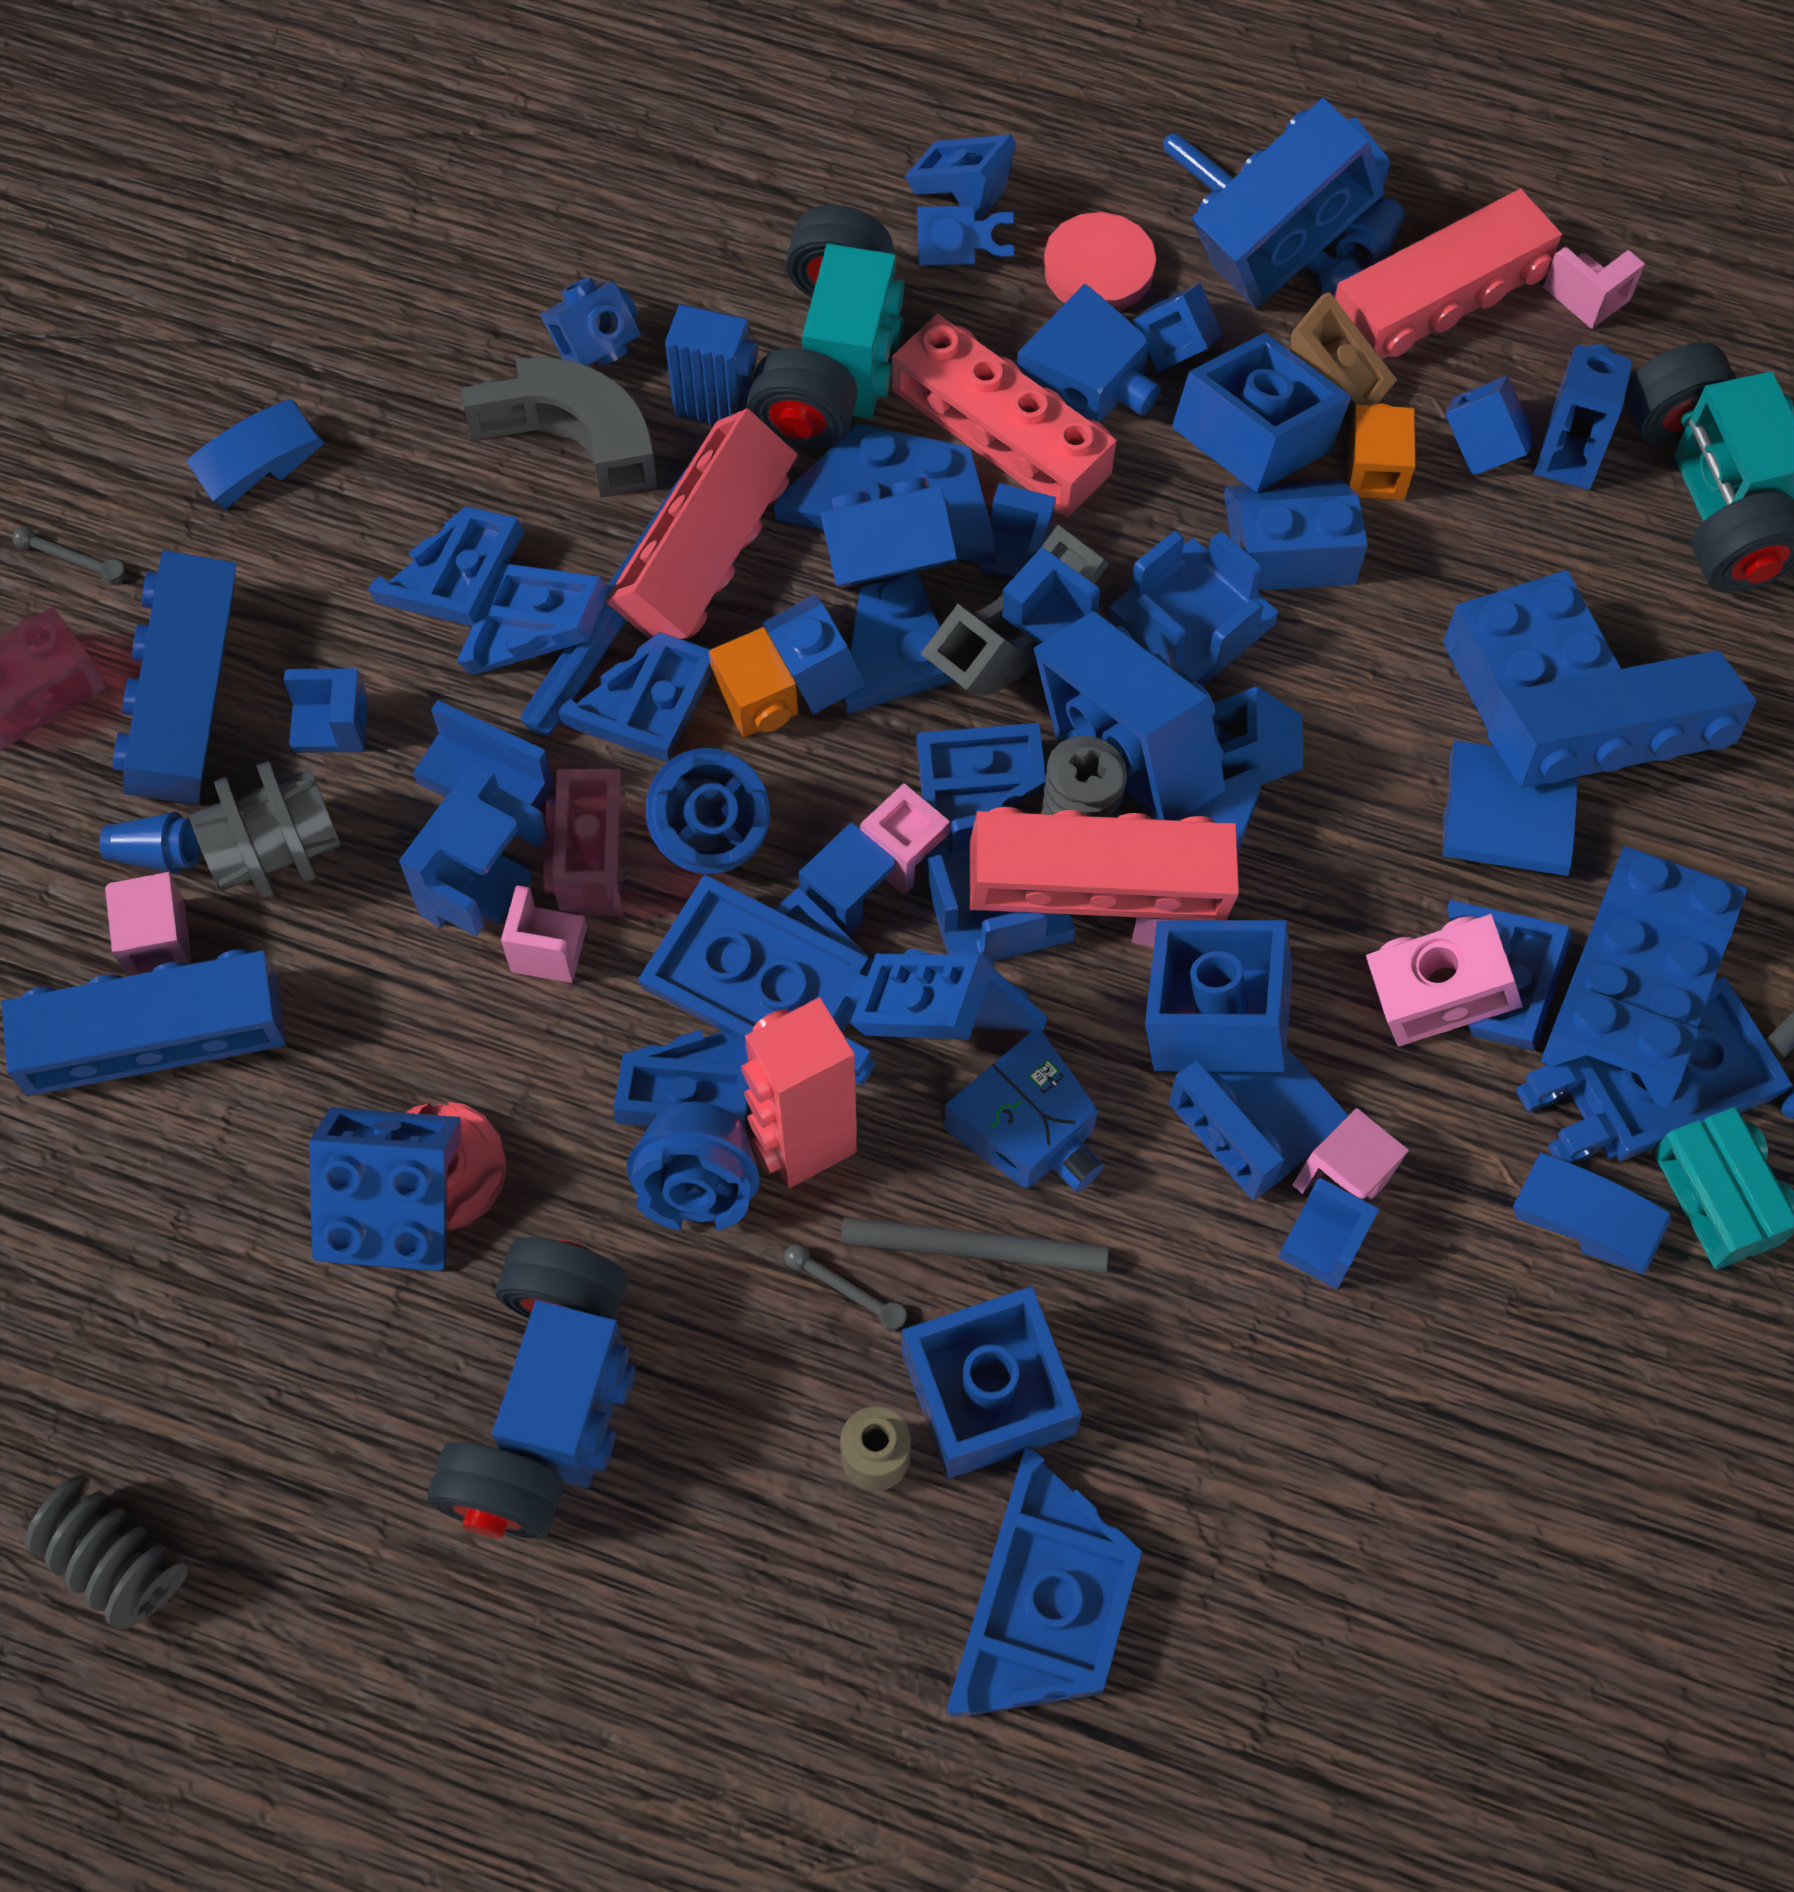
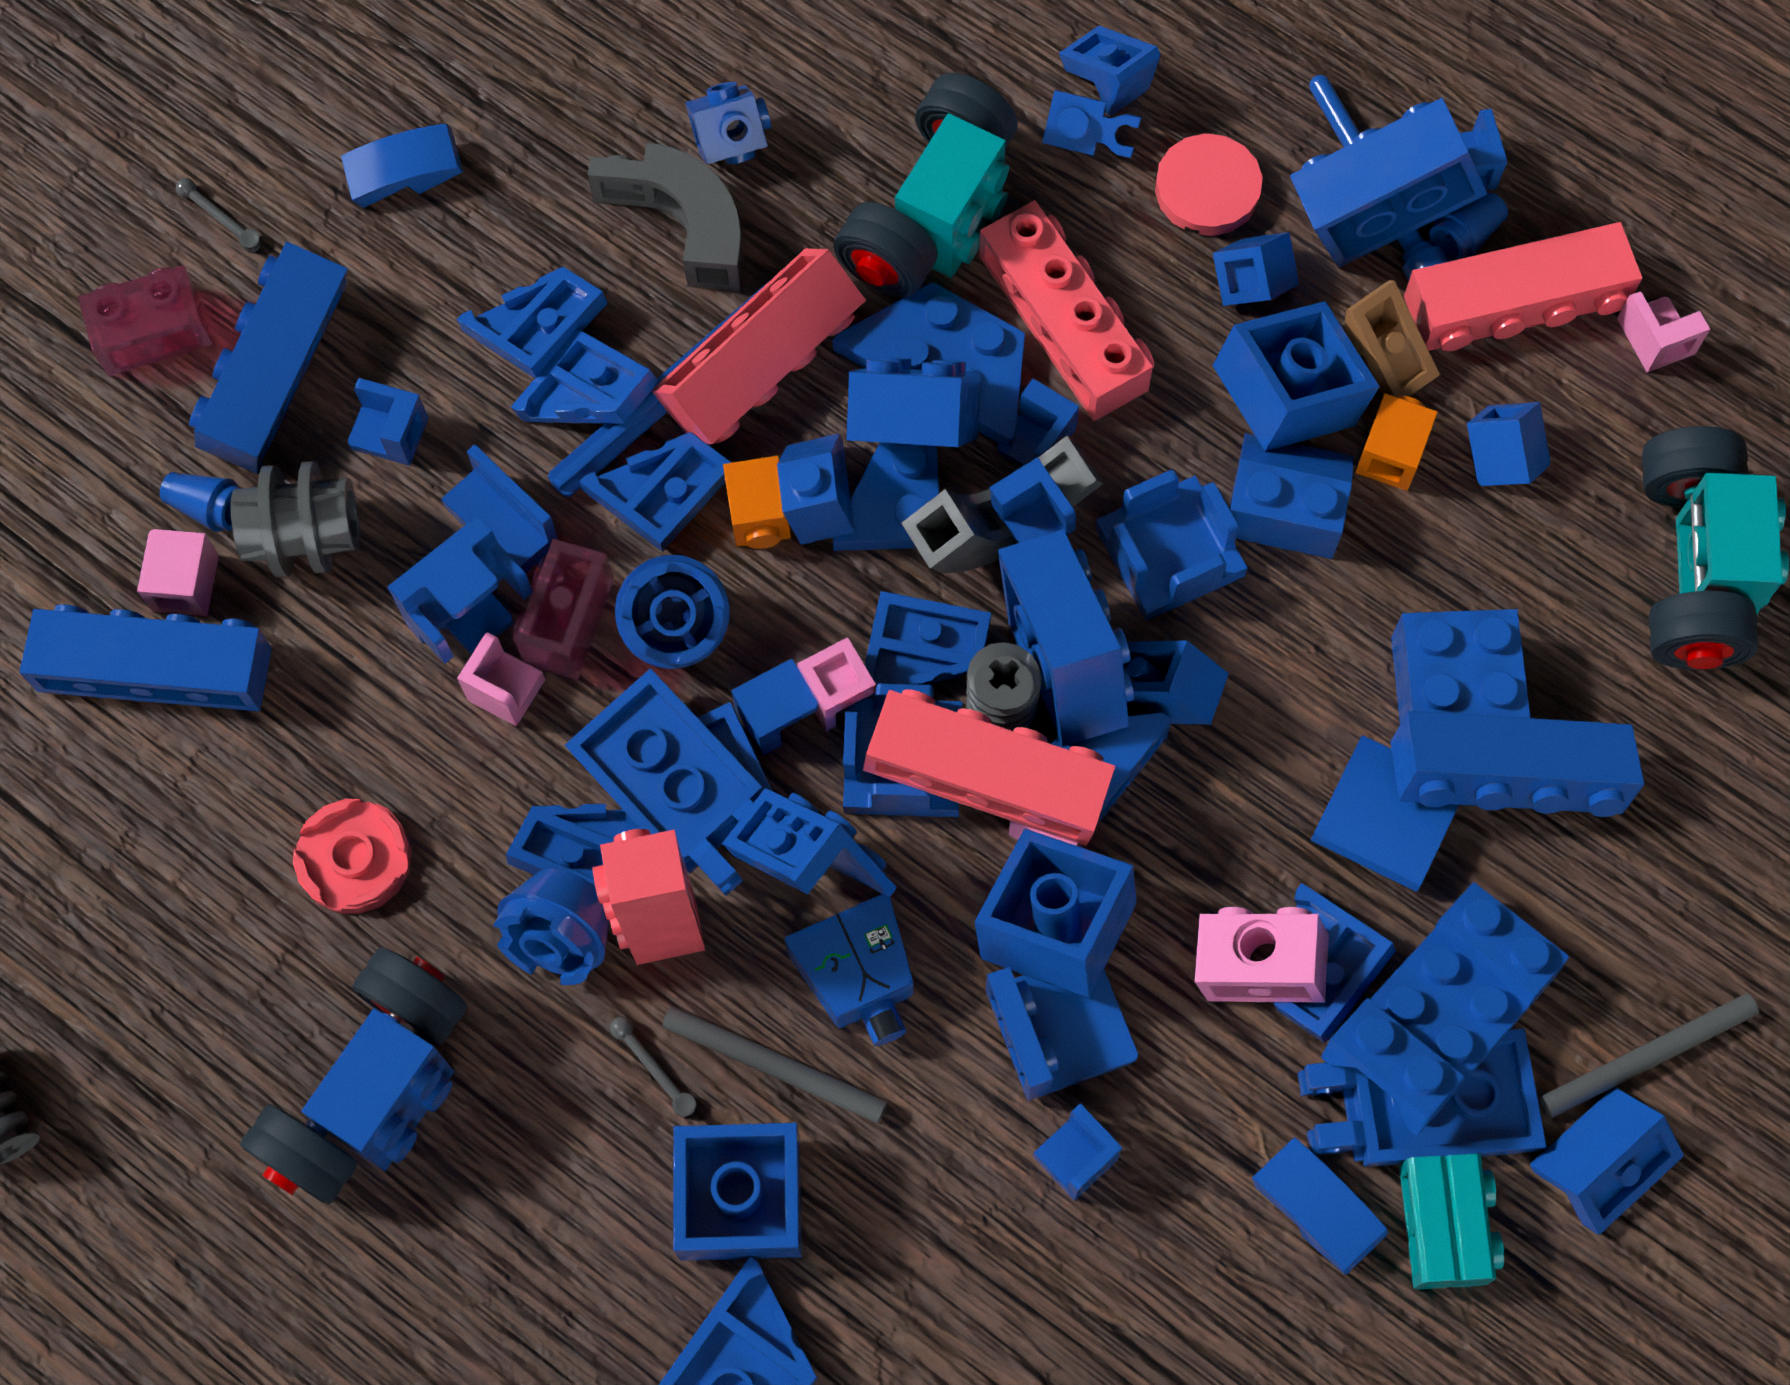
camera: 20 degrees right, 5 degrees up
(381, 1188) = (294, 860): blue bracket -> none
(709, 363) = (813, 193): blue brick -> none
(881, 1468) = (636, 1231): dark tan brick -> none
(1091, 358) = (1160, 279): blue torso -> none
(1355, 1156) = (1122, 1094): bright pink panel -> none
(1592, 392) = (1607, 441): blue torso -> none

